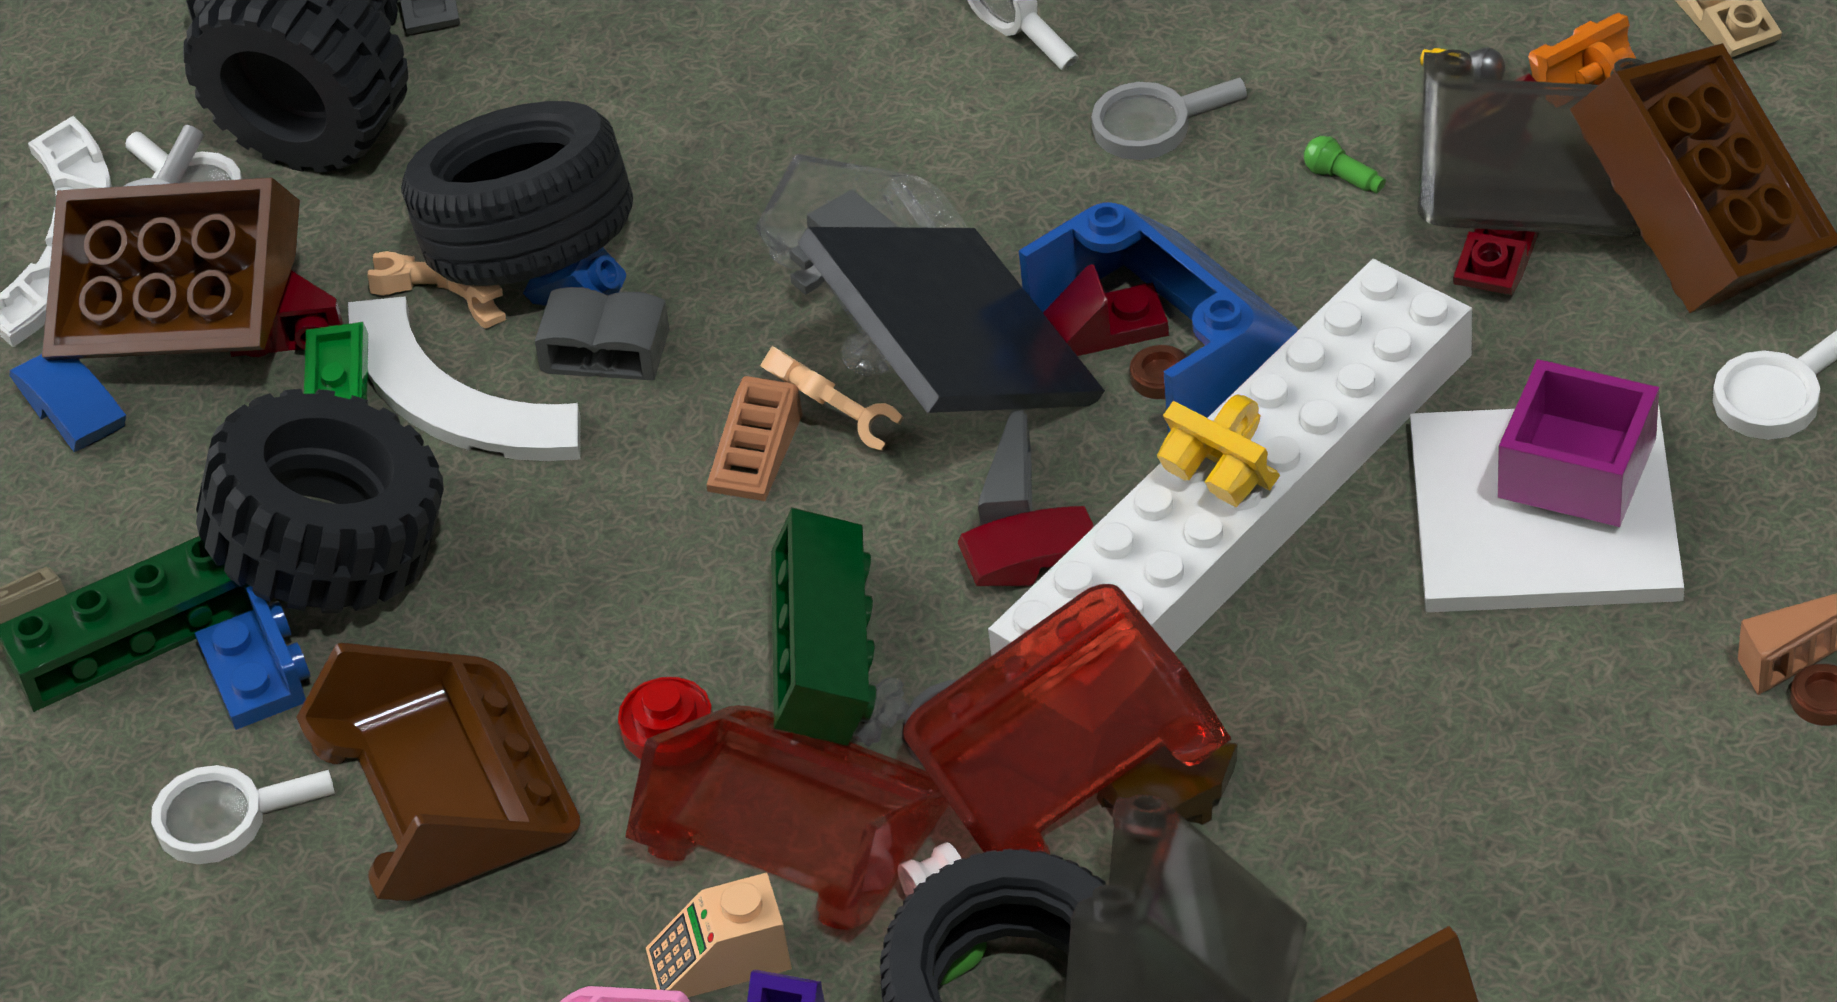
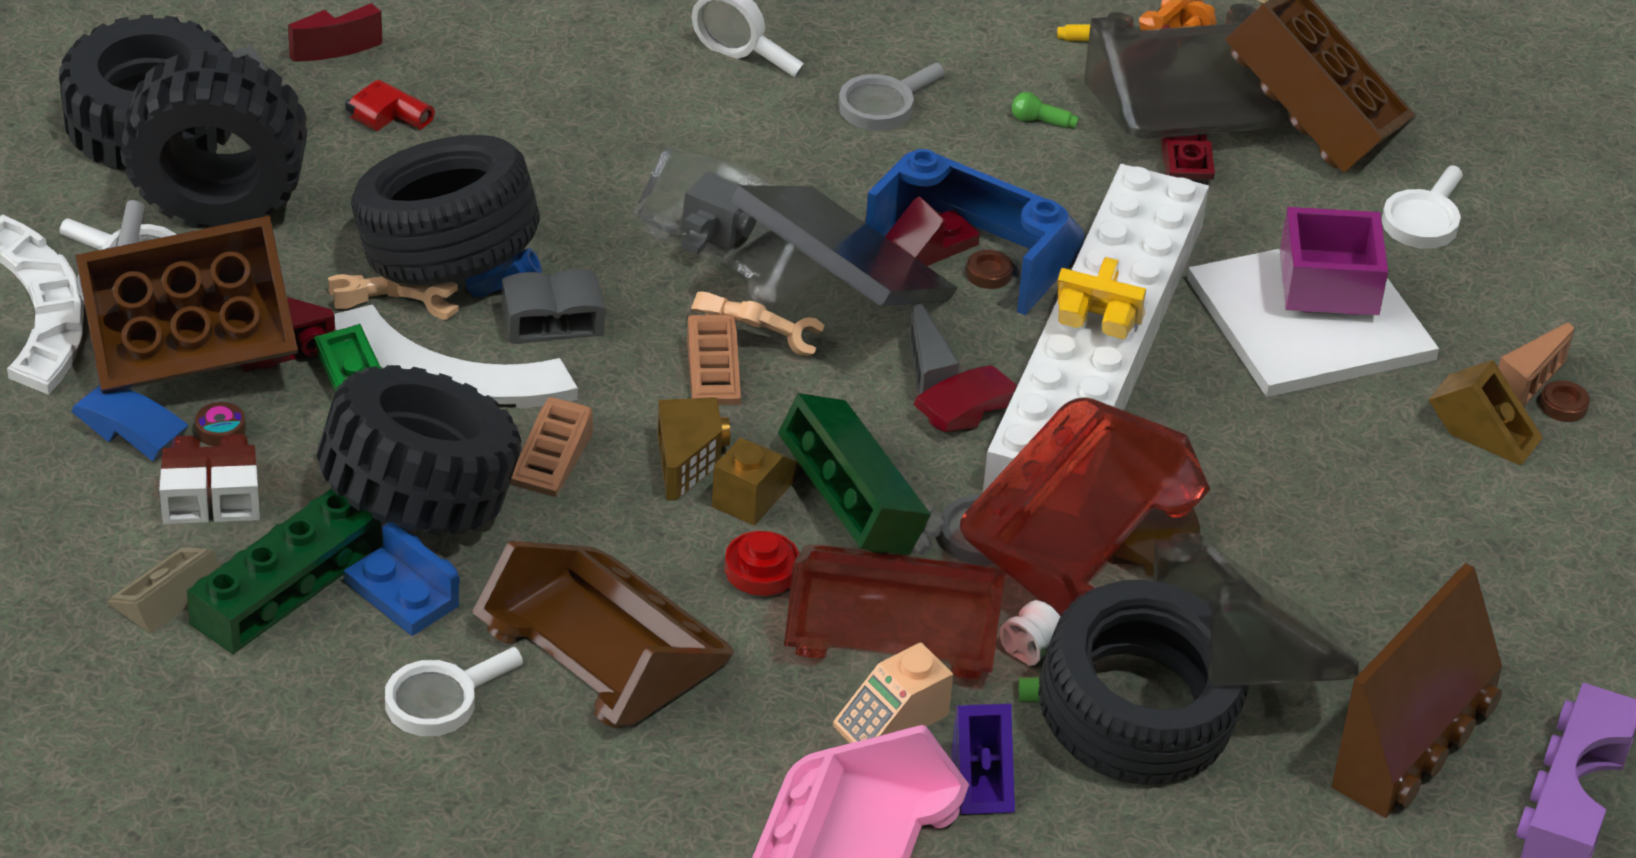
camera: 30 degrees left, 5 degrees down
(106, 490) = (192, 469): none -> white hips
(166, 419) = (218, 420): none -> tile
(525, 485) = (562, 421): none -> nougat slope
(556, 37) = (383, 103): none -> red piece
(661, 545) = (689, 441): none -> pearl gold slope
(711, 603) = (751, 480): none -> pearl gold slope
(1694, 696) = (1486, 412): none -> pearl gold slope

